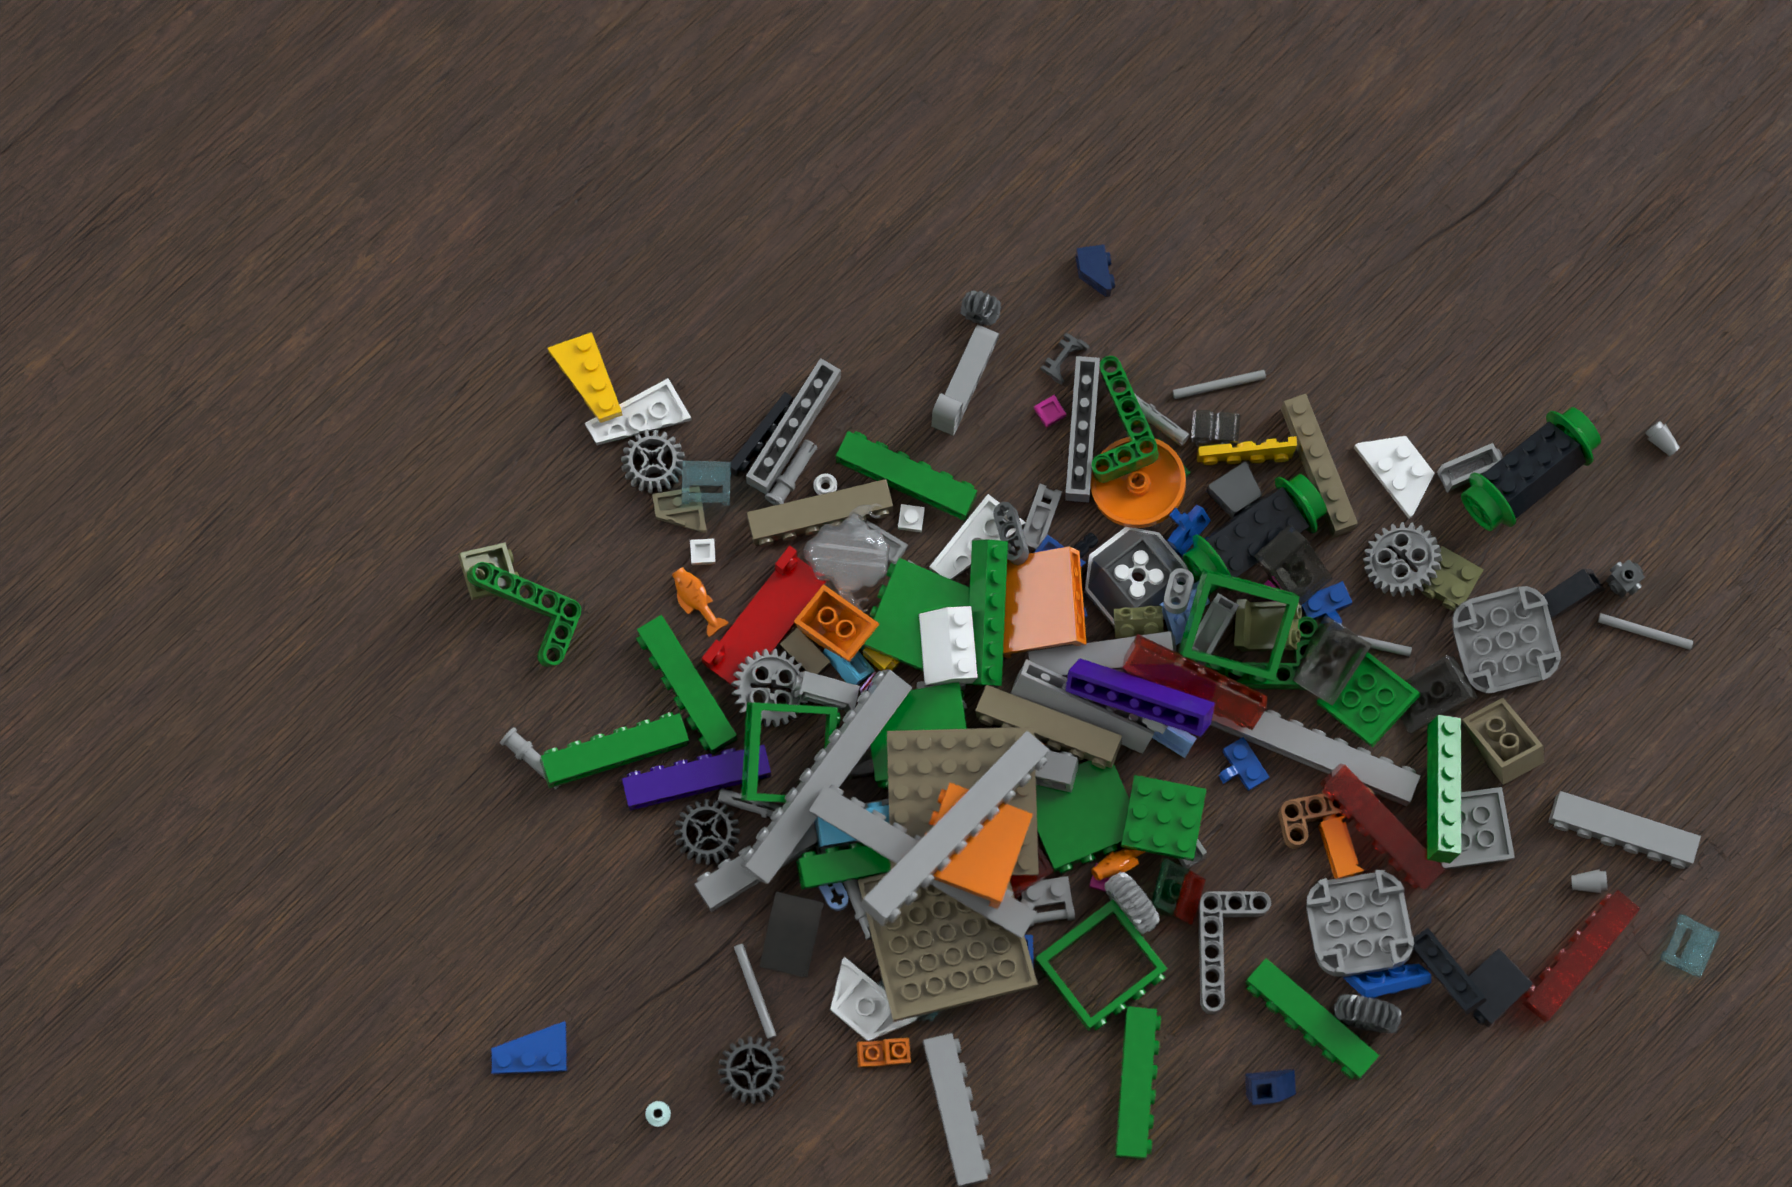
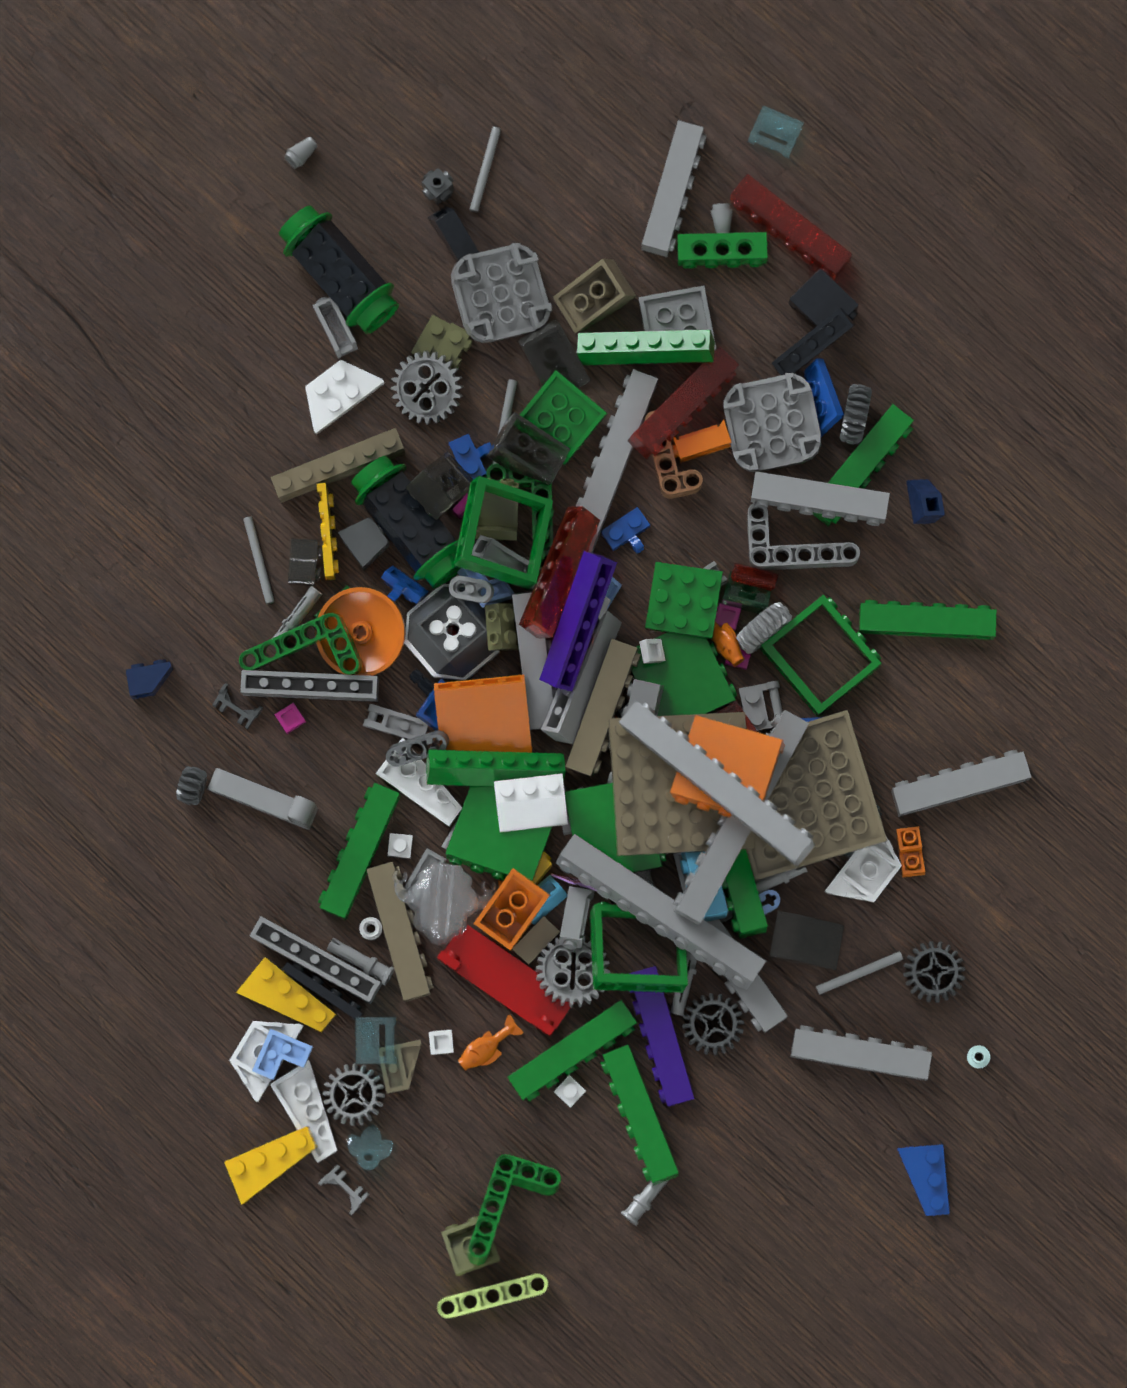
camera: 85 degrees left, 5 degrees up
(434, 583) = (481, 1296): none -> yellowish green beam
(568, 439) = (355, 1200): none -> light grey piece
(601, 477) = (369, 1144): none -> clear light blue plate
(645, 682) = (569, 1091): none -> white plate
(666, 987) = (861, 1054): none -> light grey brick
(700, 373) = (249, 1050): none -> white wing
(703, 387) = (280, 1047): none -> light blue plate
(758, 397) = (281, 993): none -> yellow wing
(1108, 780) = (652, 651): none -> white plate
(1147, 869) = (727, 614): none -> dark pink tile
(1273, 967) = (820, 498): none -> light grey brick
(1560, 842) = (731, 241): none -> green brick

